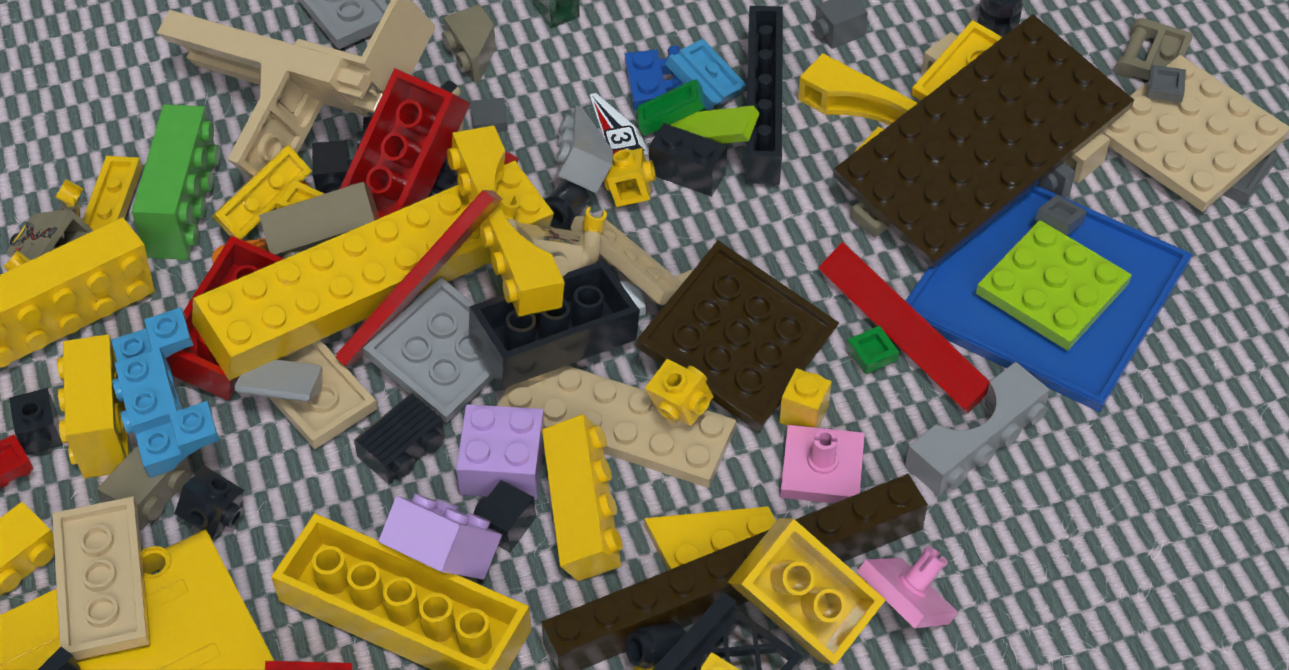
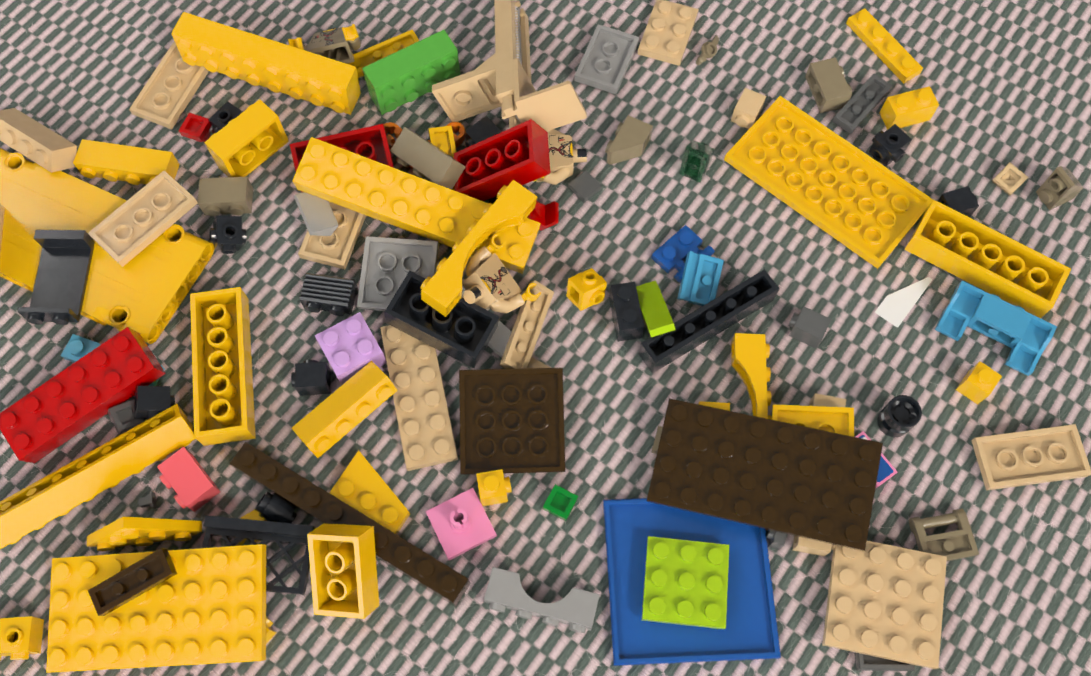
camera: 55 degrees right, 15 degrees up
(151, 401) = (258, 163): dark azure bracket -> none
(261, 193) = (435, 116): yellow tile -> none
(420, 275) = (416, 231): red tile -> none
(440, 536) = (263, 357): lavender brick -> none
(566, 202) = (544, 268): black brick -> none
(582, 151) = (582, 255): light grey slope -> none
(616, 128) = (628, 260): sticker -> none
(670, 107) = (658, 277): green tile -> none
(679, 392) = (439, 416): yellow brick -> none
(906, 327) = (590, 512): red tile -> none
(910, 589) = (390, 626): bright pink tile -> none
(1061, 214) = (743, 555): dark grey plate -> none
(1166, 83) = (905, 562): dark grey tile -> none

